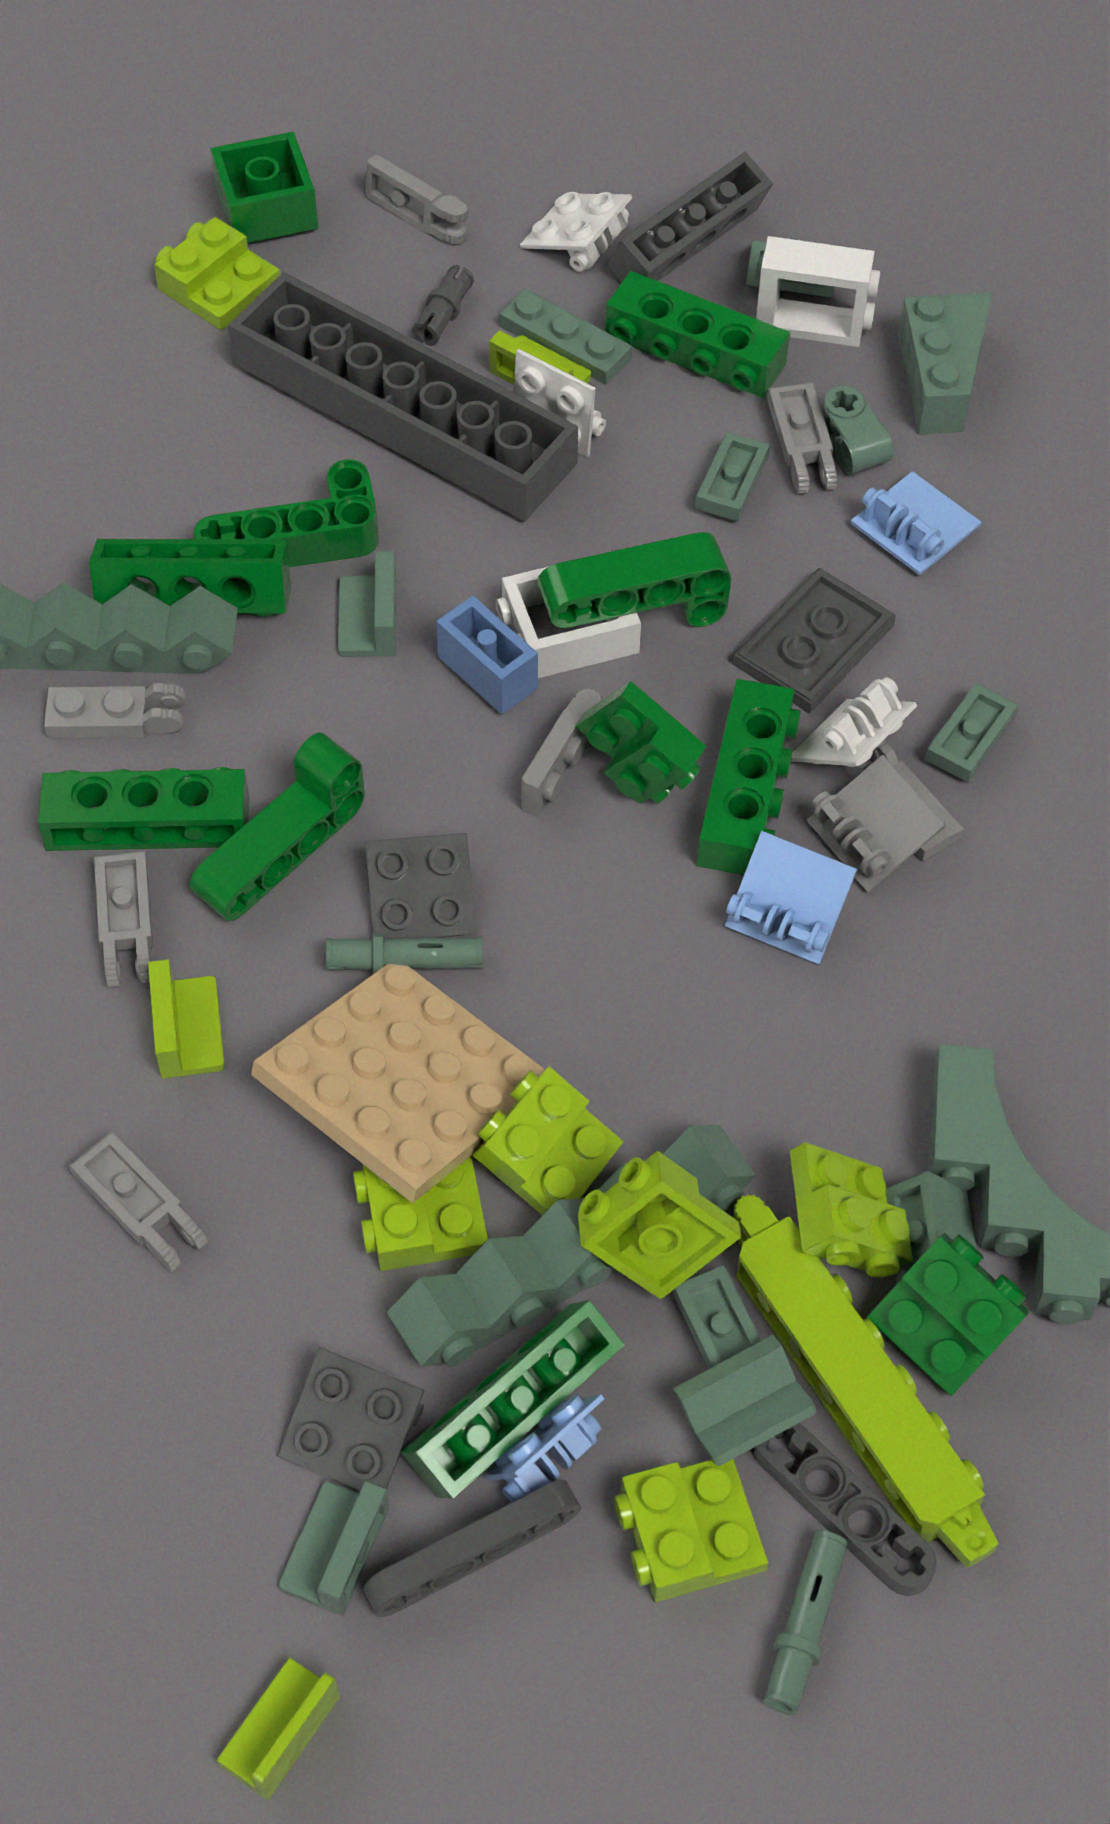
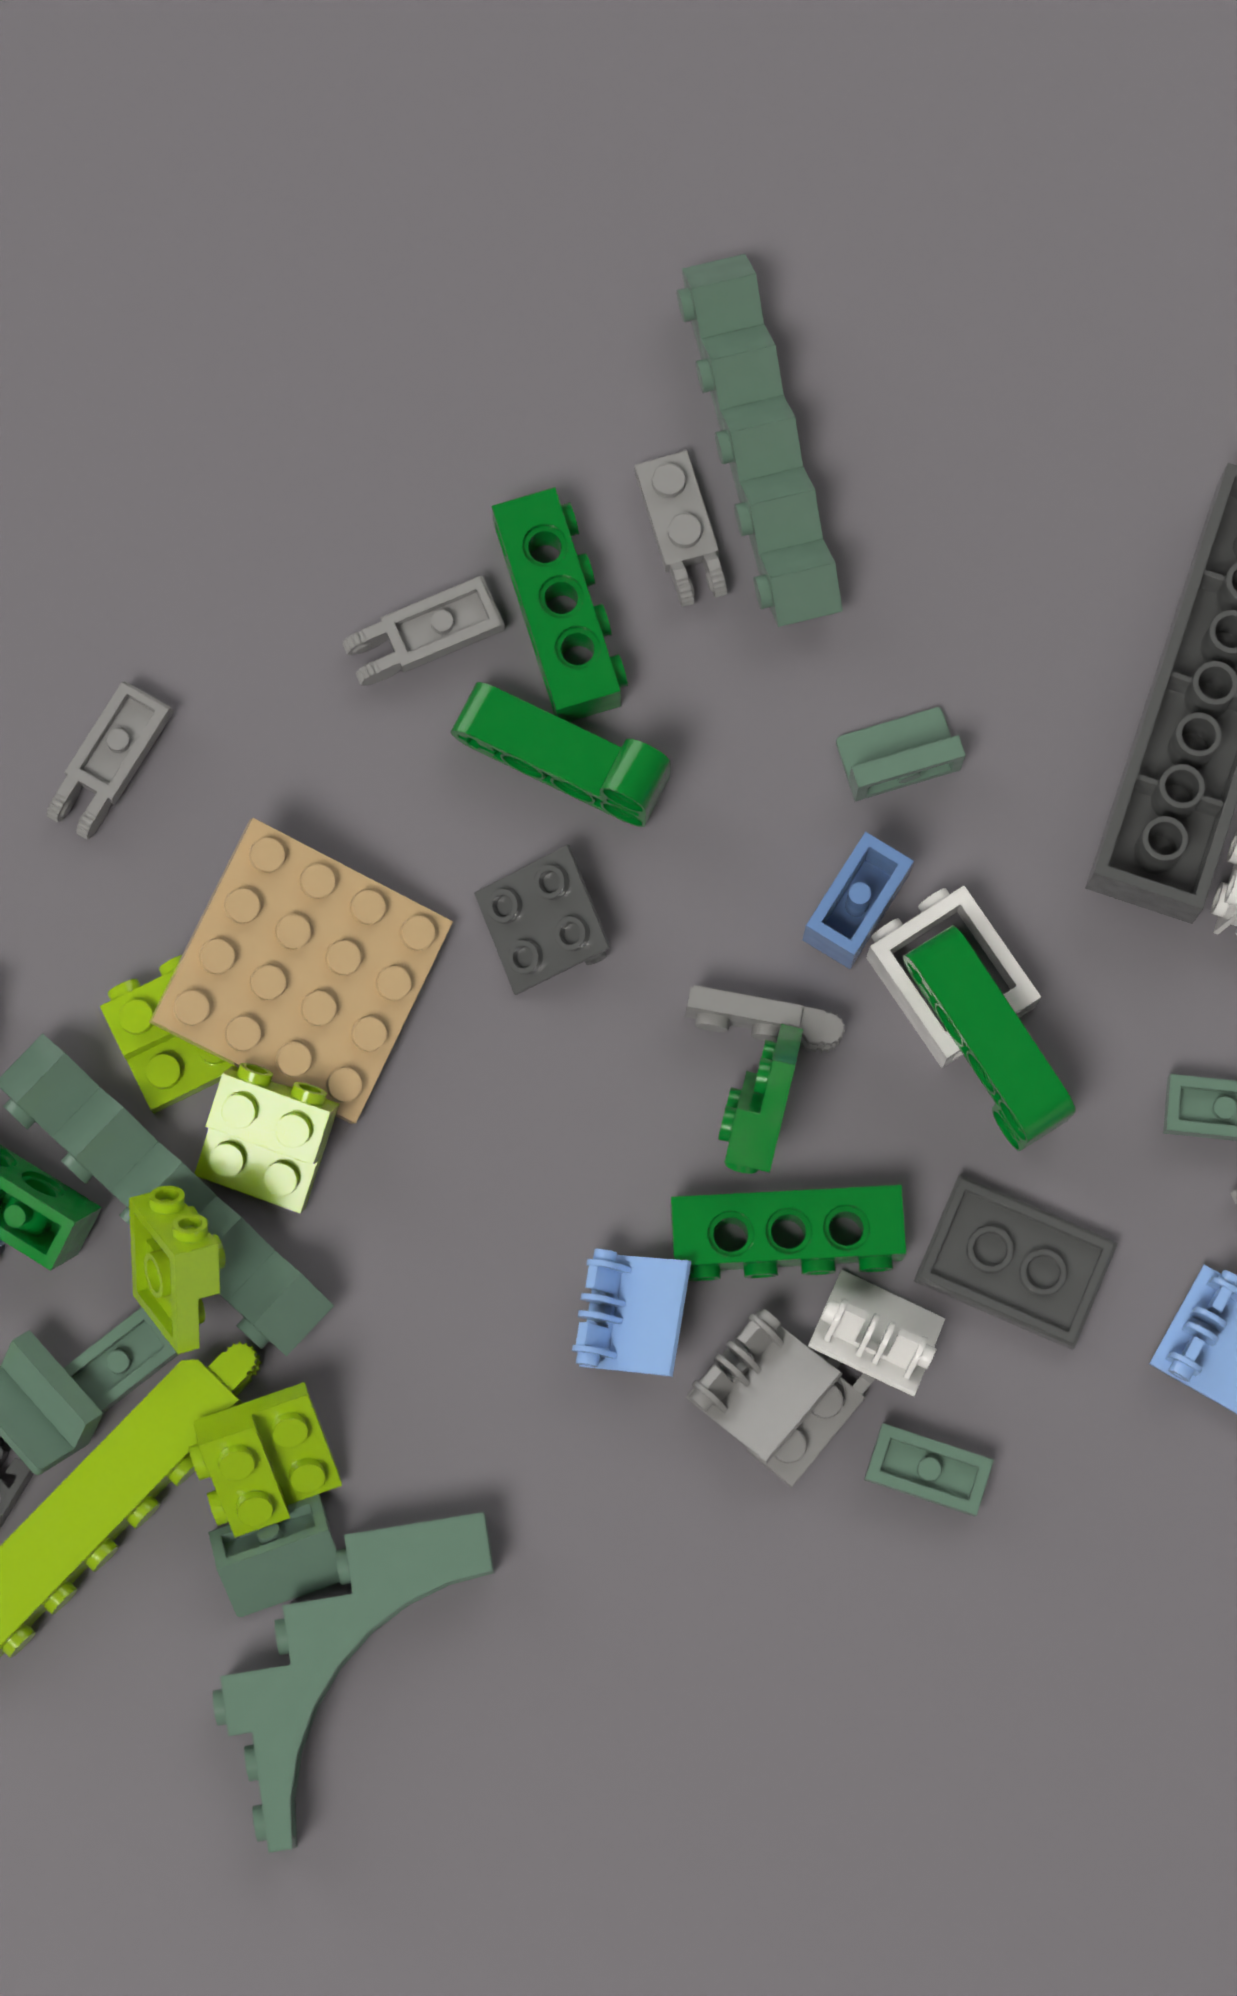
camera: 75 degrees right, 20 degrees up
(185, 1023) = (320, 733): lime panel -> none
(210, 561) = (869, 547): green brick -> none
(314, 529) = (982, 628): green beam -> none
(411, 952) = (460, 927): sand green pin -> none
(950, 1312) = (176, 1586): green plate -> none

